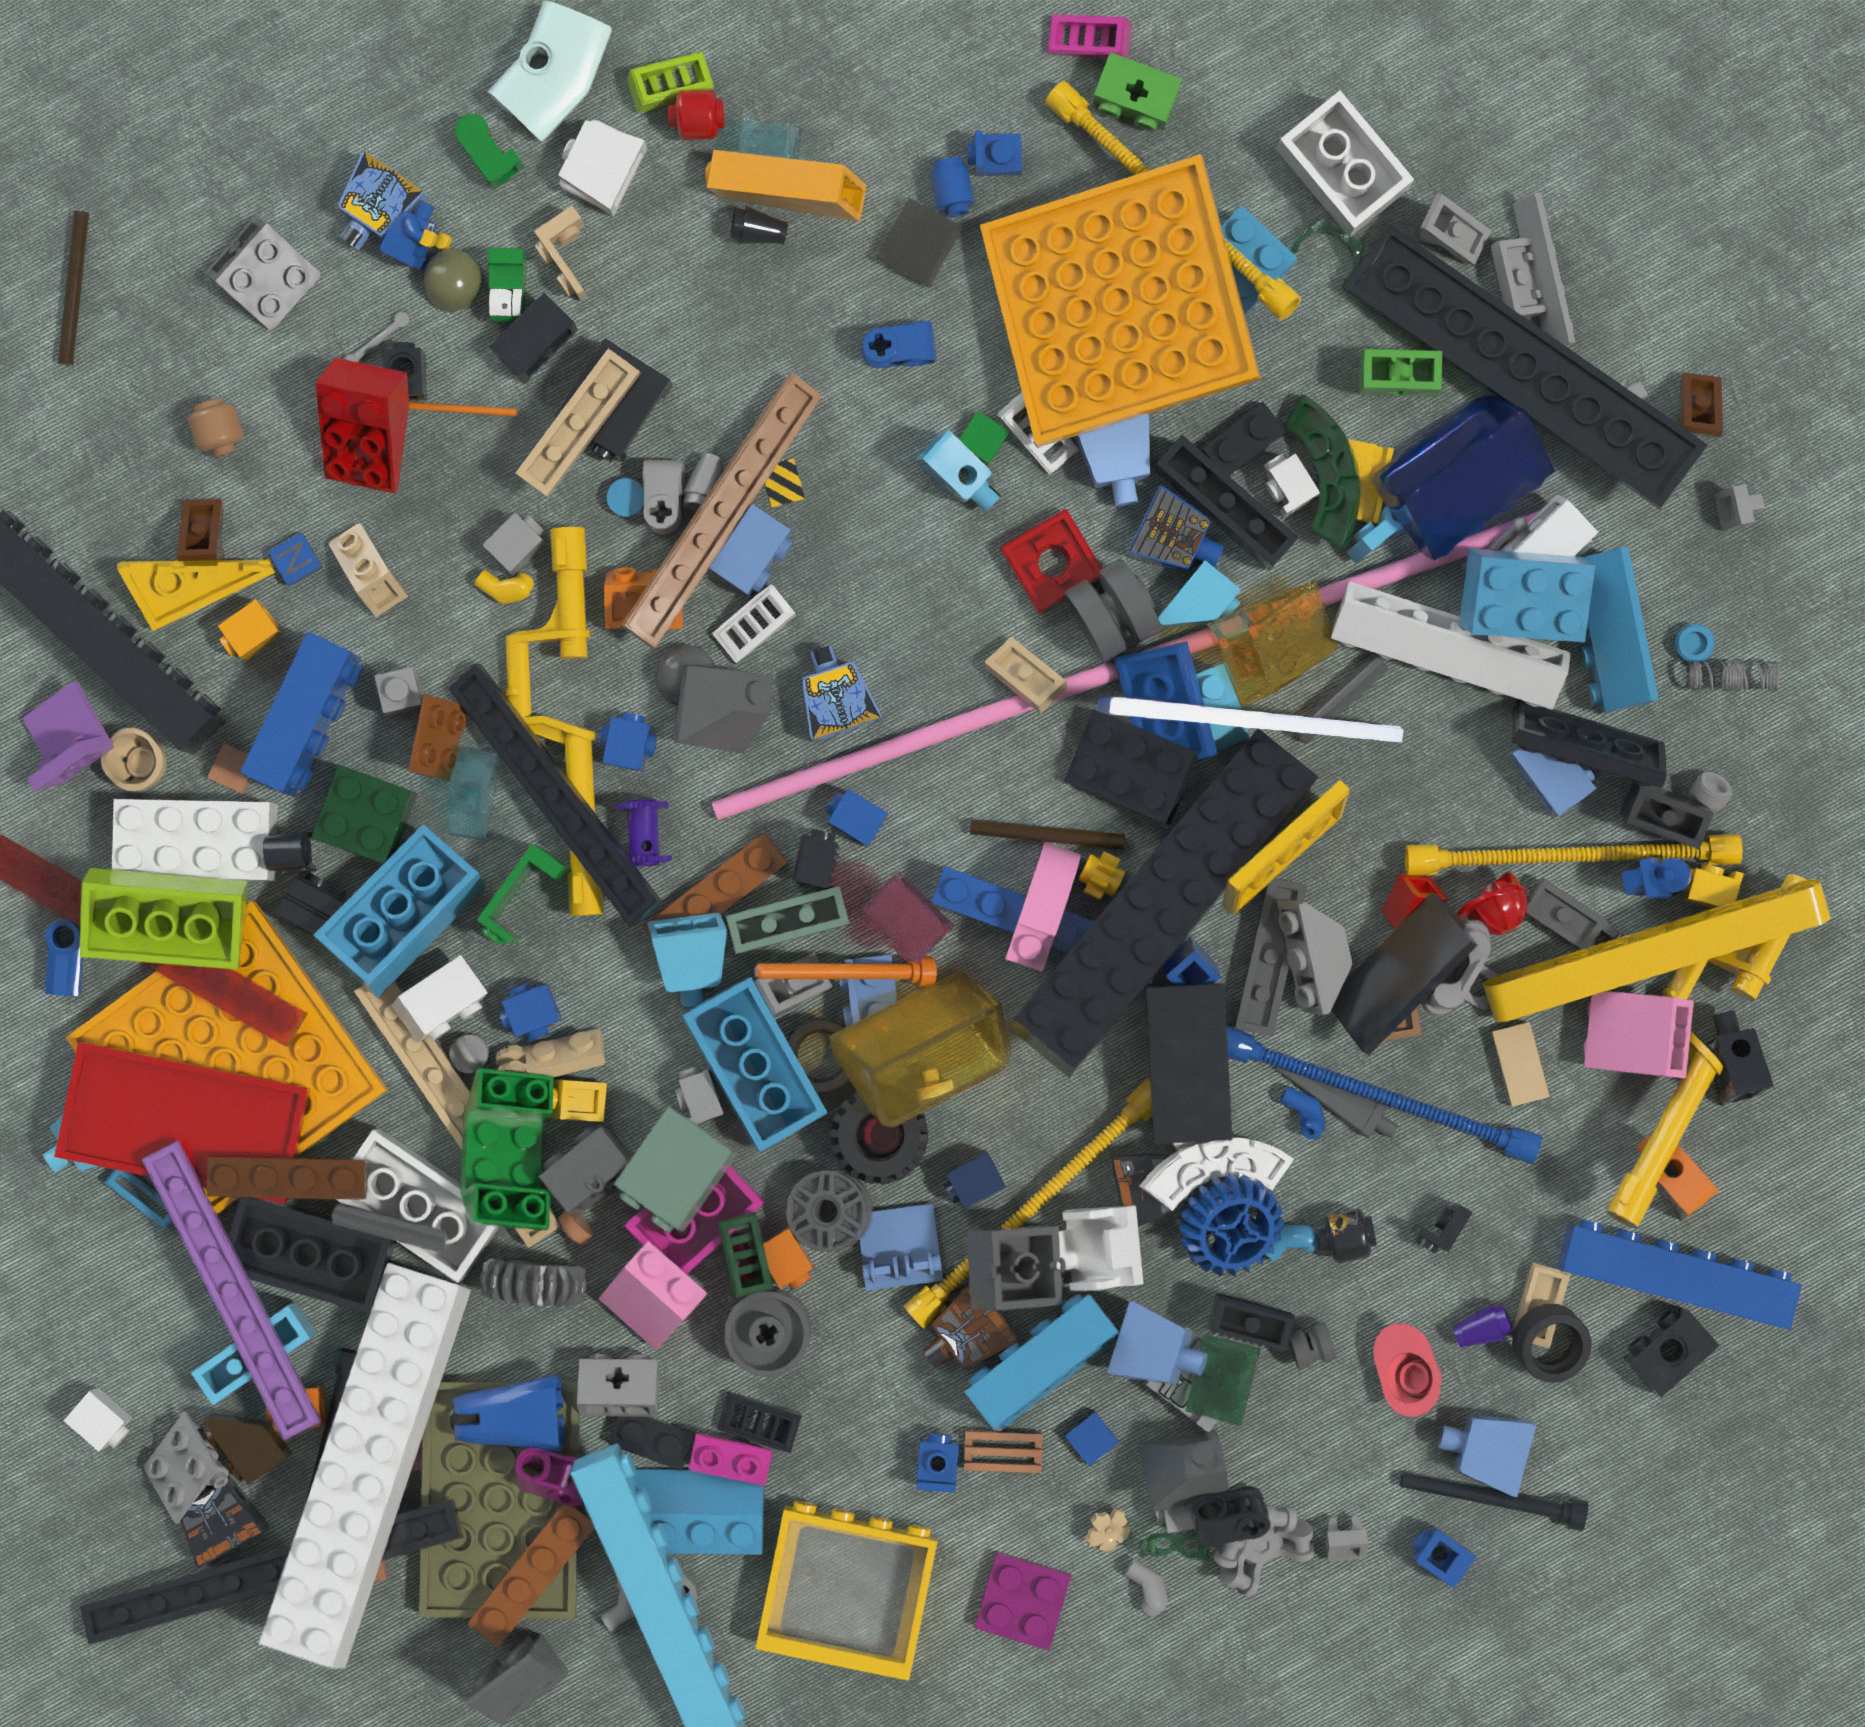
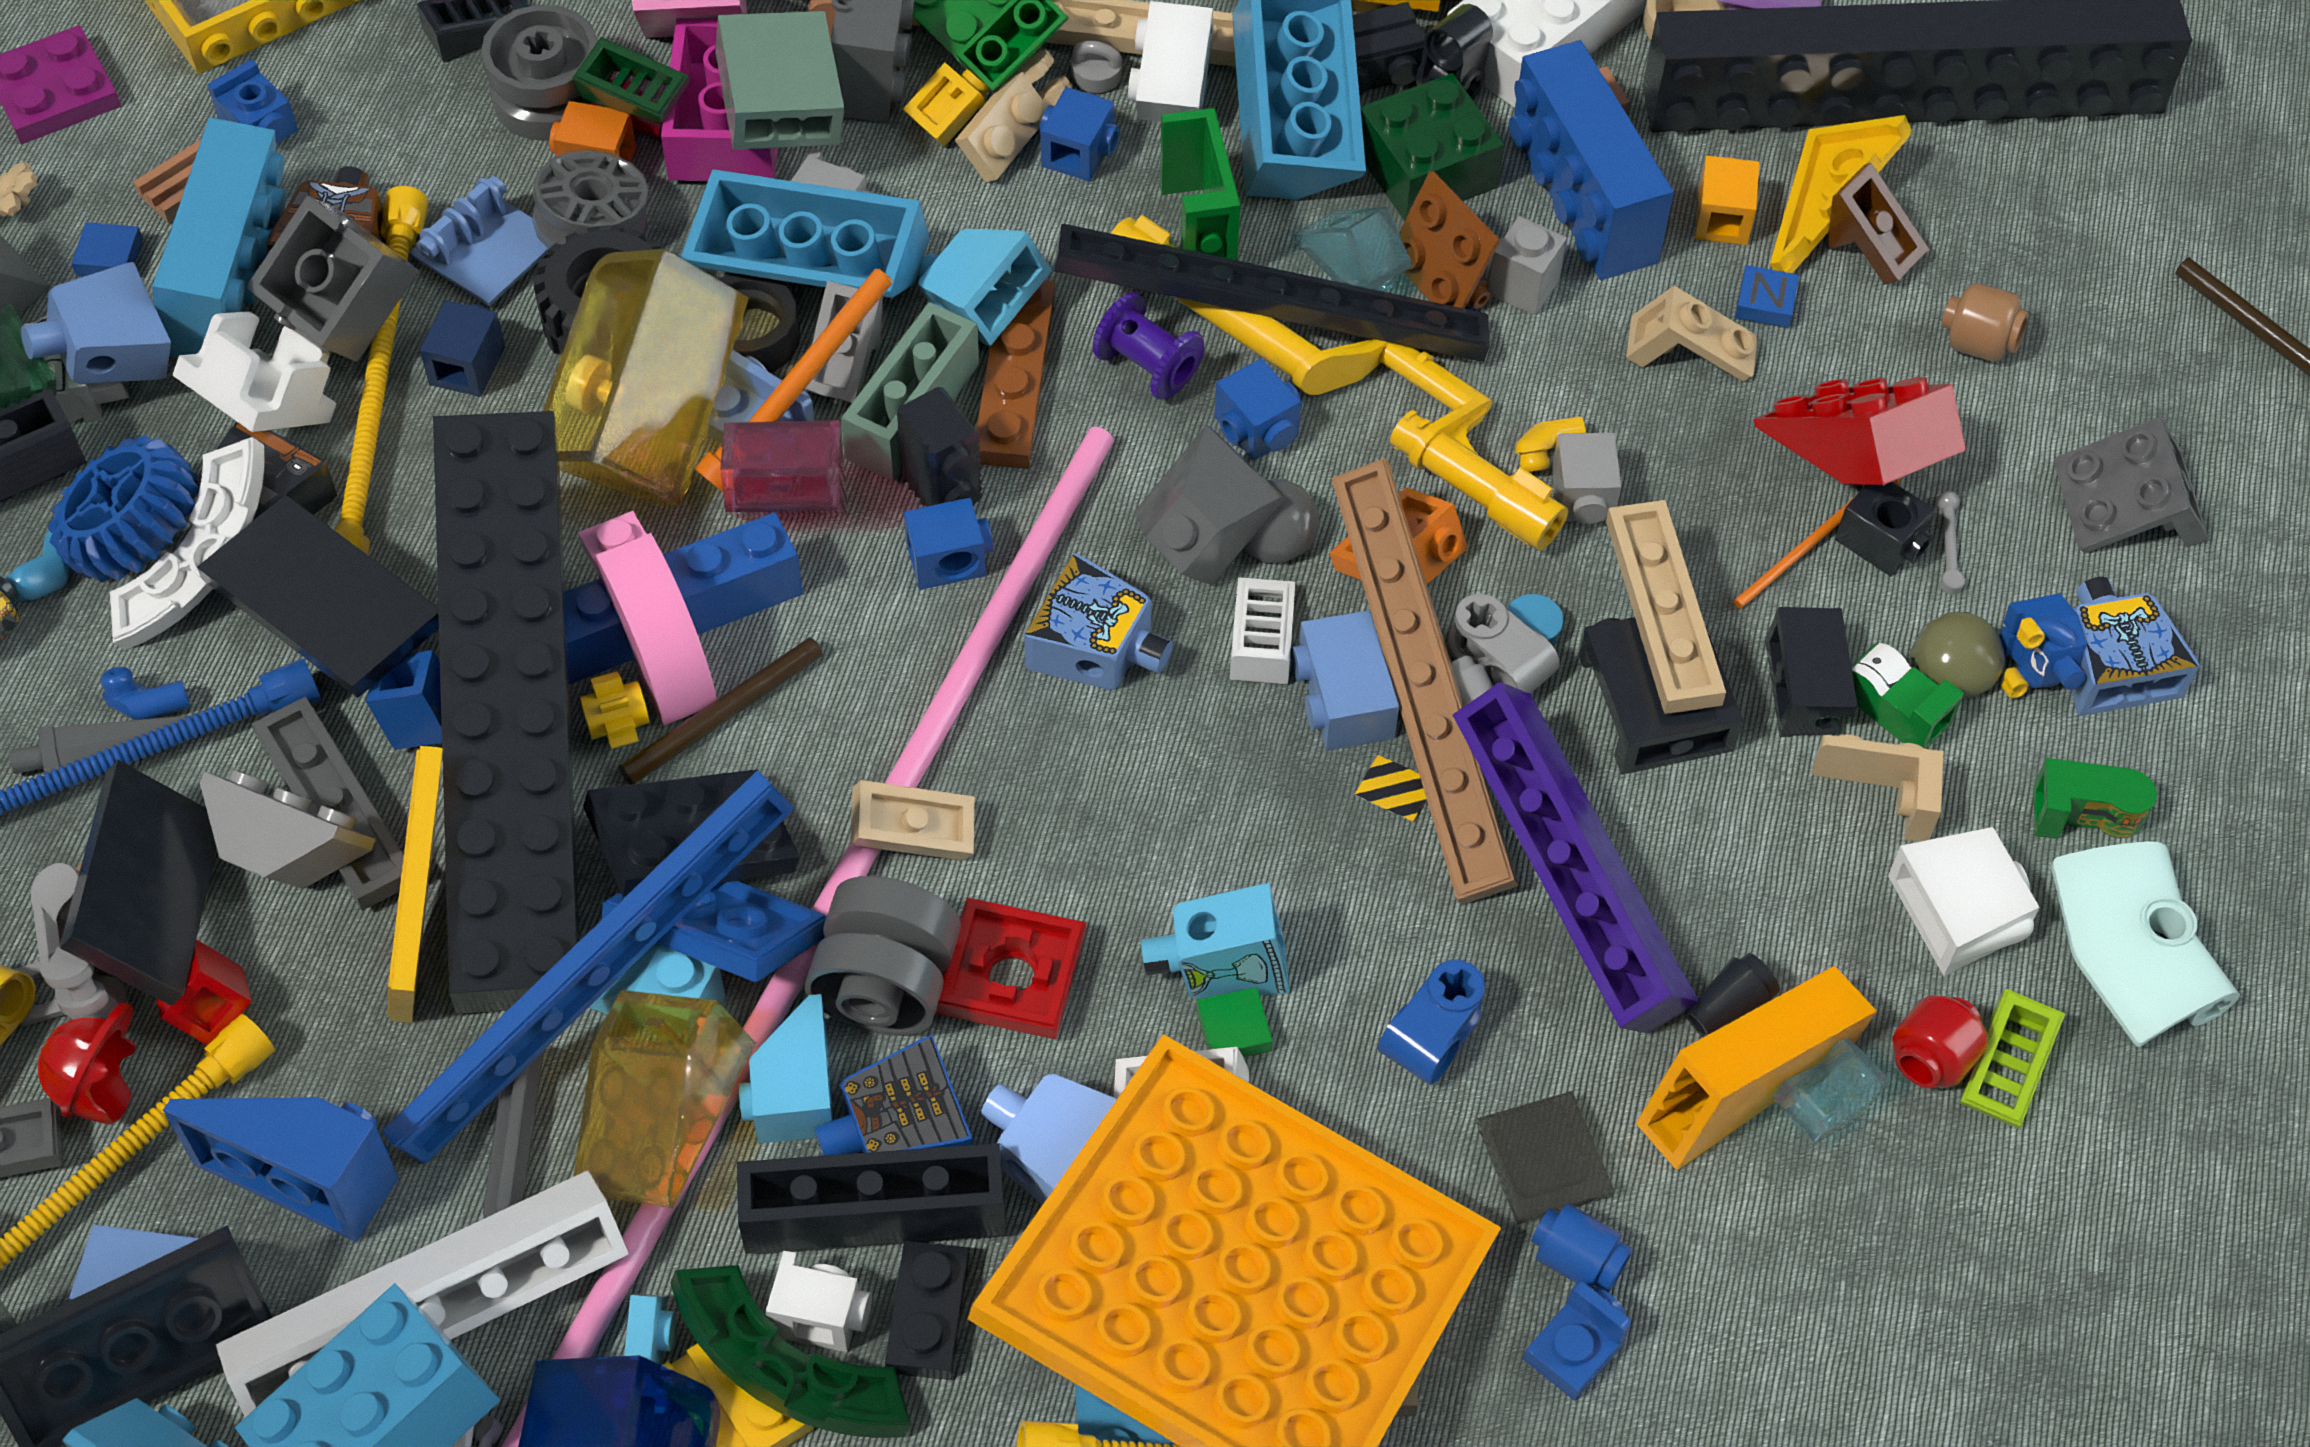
camera: 130 degrees right, 30 degrees down
(760, 350) = (1575, 859): none -> dark purple brick
(1447, 762) = (293, 1153): none -> blue slope

